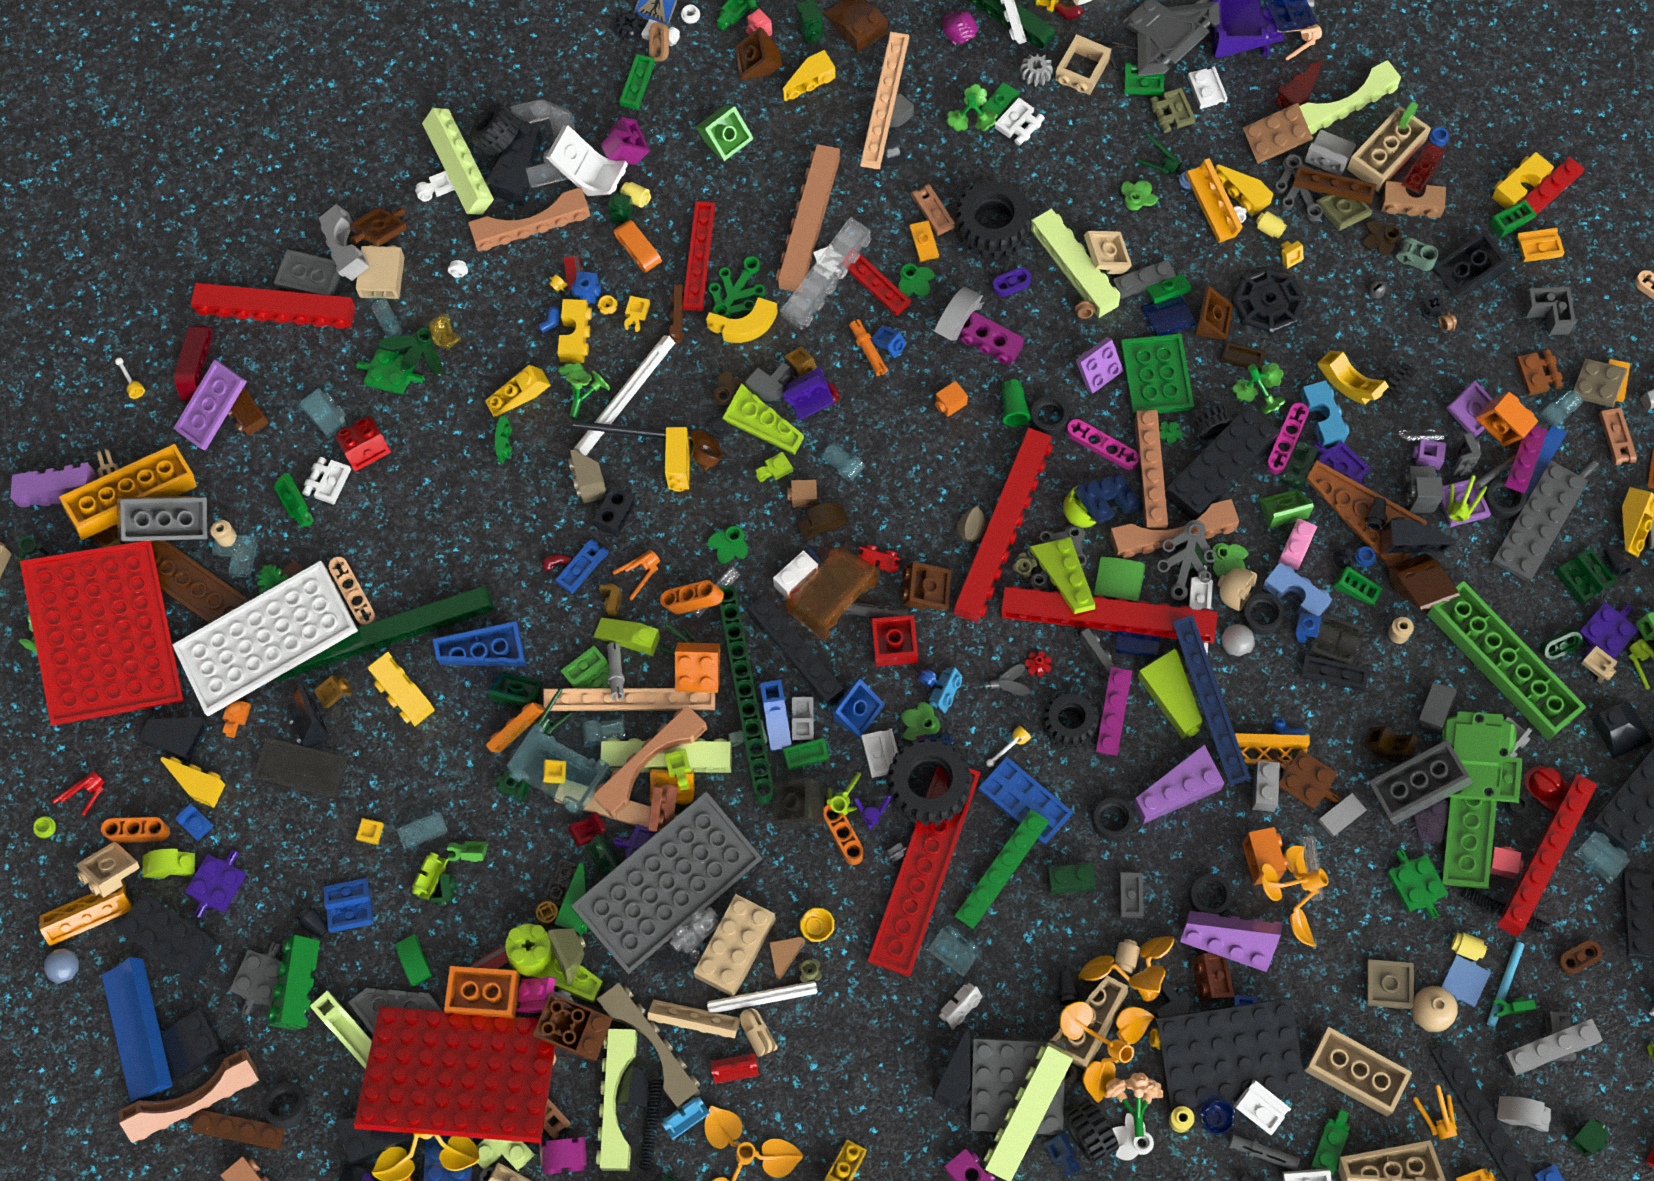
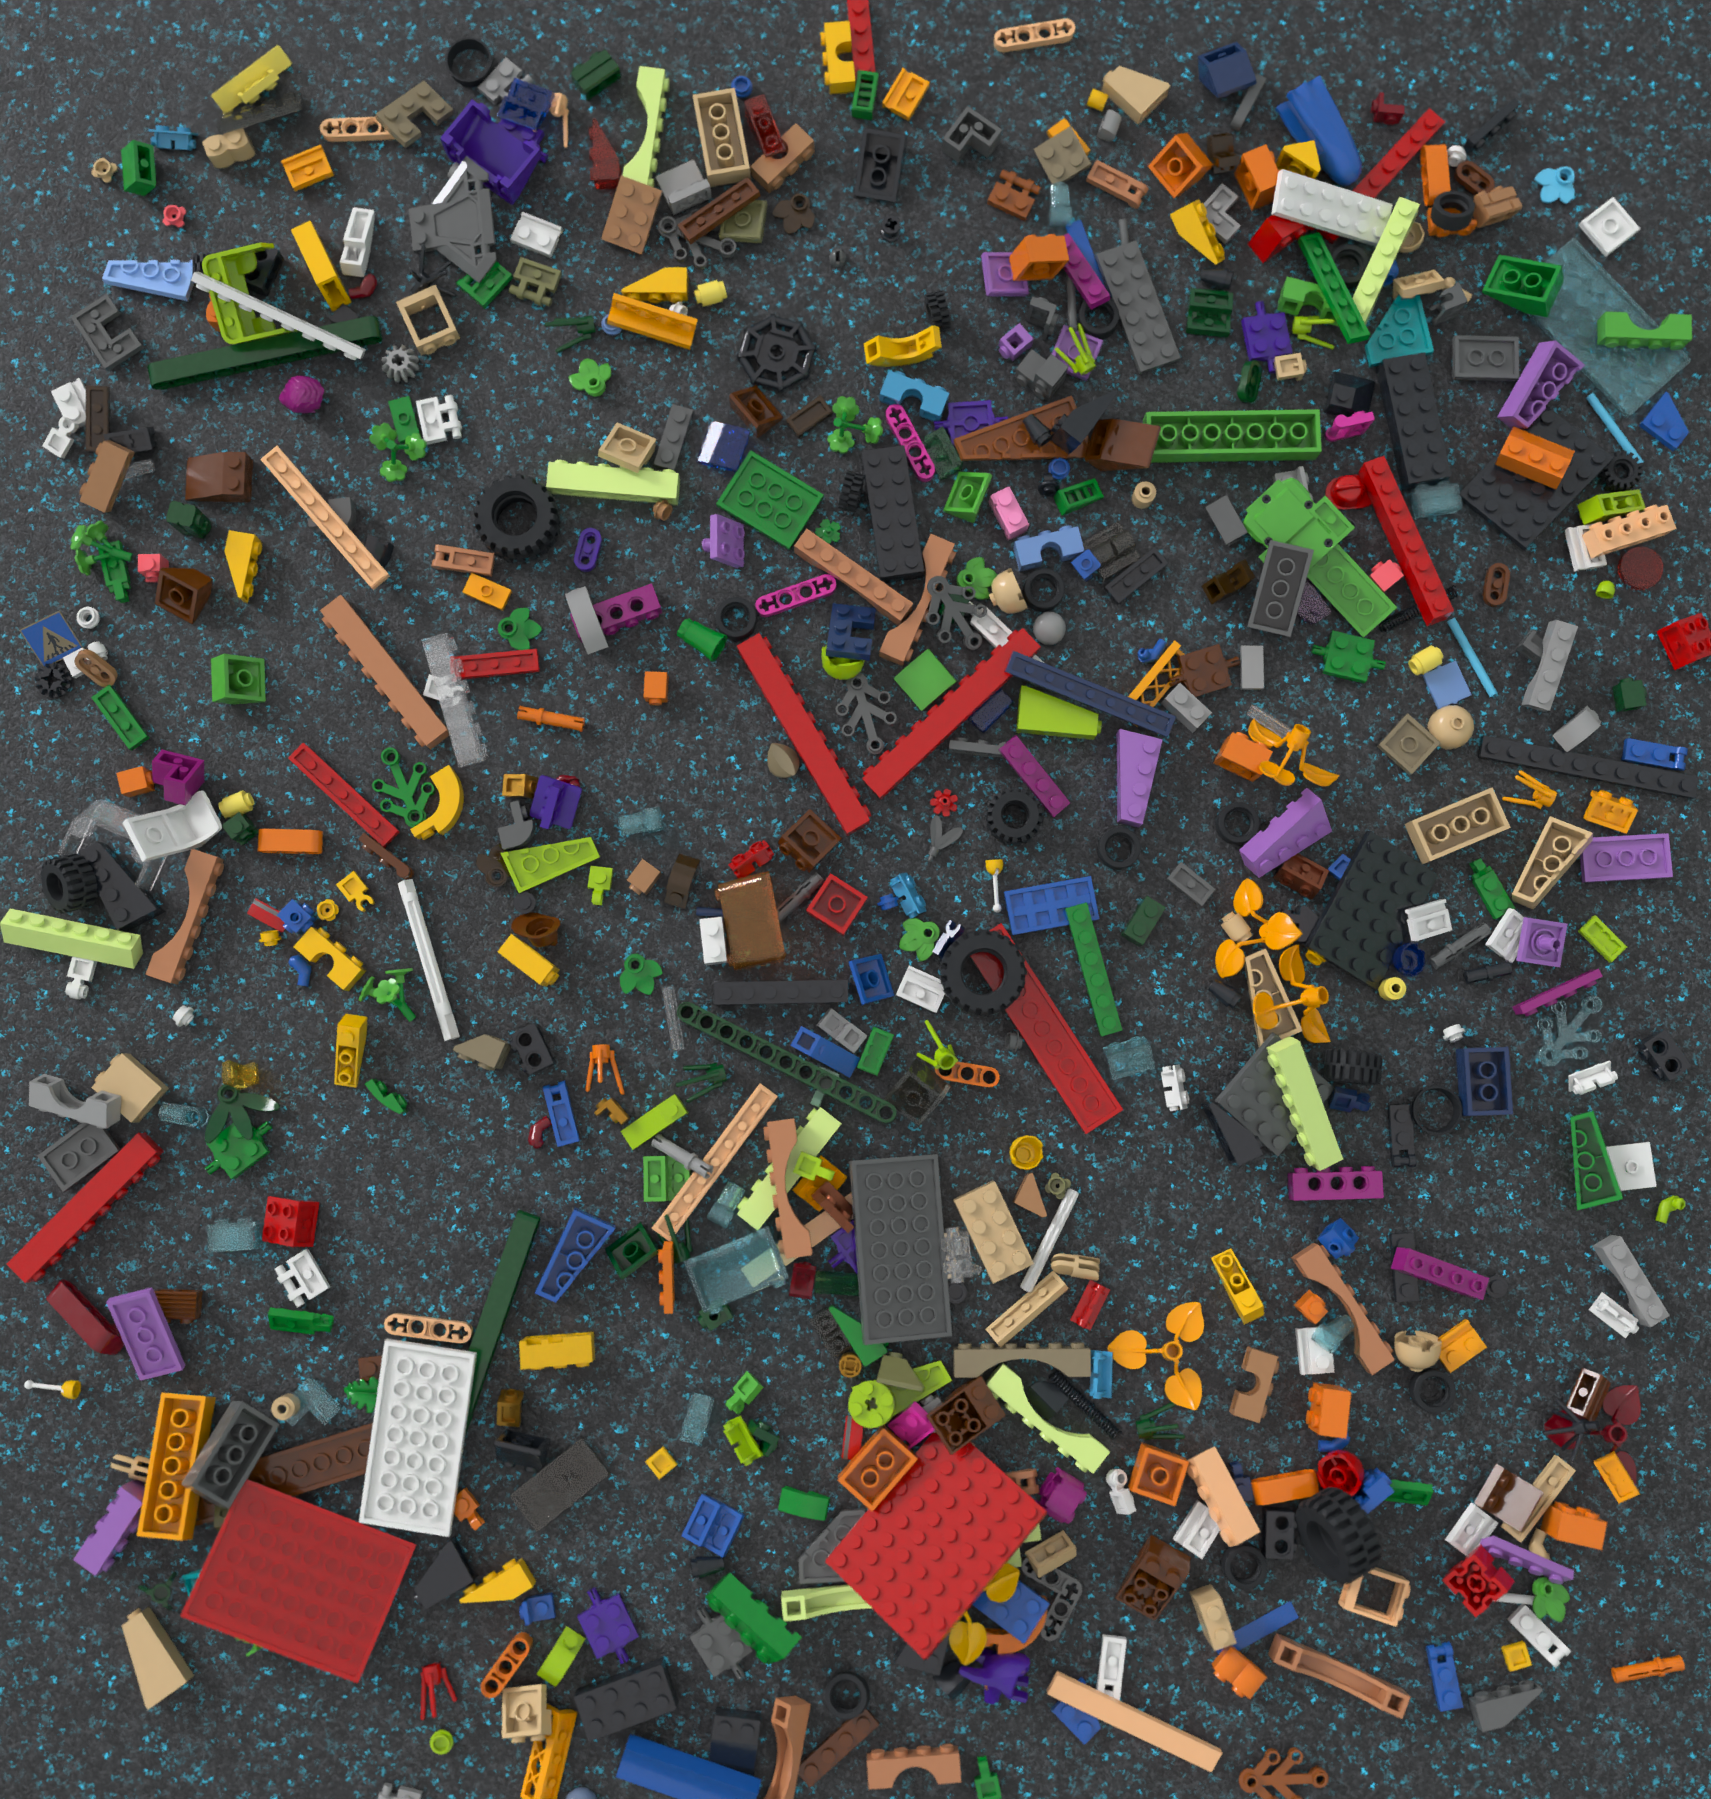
camera: 60 degrees left, 15 degrees up
(378, 226) = (81, 1057): reddish brown plate -> none
(554, 771) = (733, 1273): yellow tile -> none
(599, 121) = (135, 781): none -> orange brick
(621, 429) = (465, 983): black bar -> none
(691, 597) = (661, 1050): orange beam -> none
(697, 667) = (734, 1086): orange brick -> none
(871, 814) = (969, 1038): dark purple plant -> none
(890, 340) = (558, 696): blue bracket -> none
(1018, 566) = (856, 749): olive plate -> none
(1065, 572) = (885, 718): lime wing -> none
(1127, 1141) = (1371, 1039): white plate -> none
(1141, 1086) = (1350, 1003): light nougat plant -> none
(1168, 289) = (699, 426): green plate -> none
(1291, 253) = (750, 299): yellow tile -> none
(1355, 40) = (595, 74): none -> dark green brick
(1408, 115) = (710, 96): bright green tile -> none
(1417, 254) = (831, 201): sand green piece -> none
(1421, 435) = (995, 336): clear piece -> none
(1447, 321) = (912, 228): medium nougat plate -> none
(1518, 1005) = (1498, 663): green plate -> none
(1601, 747) = (1348, 427): none -> dark pink plate

